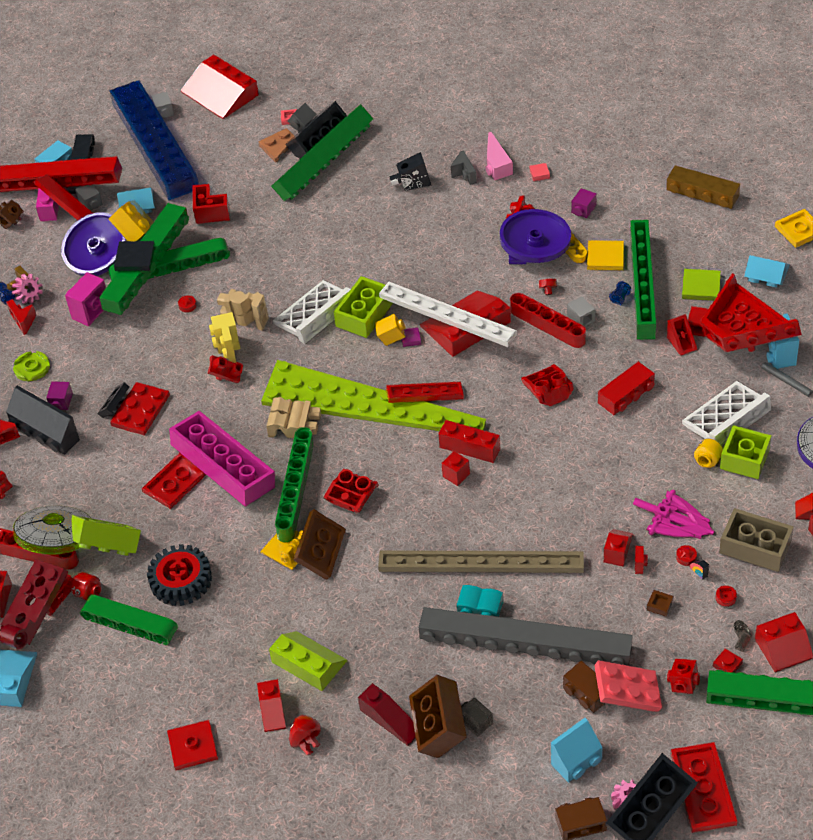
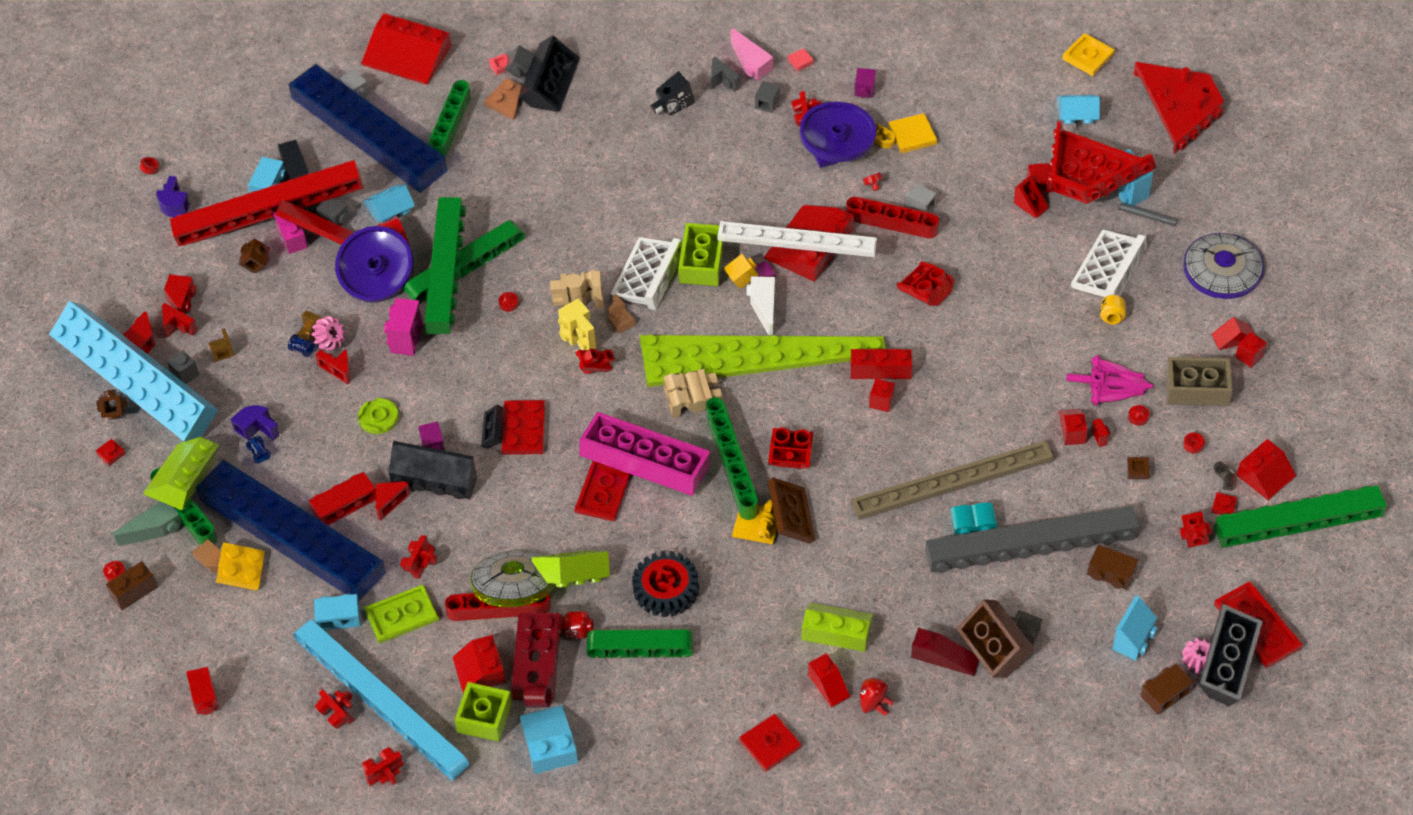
camera: 25 degrees left, 5 degrees up
(131, 221) = (409, 229): yellow slope -> none
(134, 256) = (438, 266): black tile -> none
(209, 207) = (475, 190): red brick -> none
(222, 148) = (450, 117): none -> green beam
(270, 339) = (619, 316): none -> medium nougat slope
(320, 155) = (564, 97): green brick -> none
(399, 355) = (762, 300): none -> white slope
(424, 392) = (809, 326): red tile -> none
(492, 194) = (767, 96): none -> dark grey brick
(619, 294) = (948, 172): clear blue bush -> none
(626, 388) = (1004, 267): red brick -> none
(628, 686) = (1151, 554): coral plate -> none
(642, 280) = (966, 149): green brick -> none
(701, 284) = (1021, 139): lime tile -> none
(701, 568) = (1158, 423): tile -> none
(703, 187) = (974, 34): pearl gold brick -> none
(745, 452) = (1148, 299): lime brick -> none

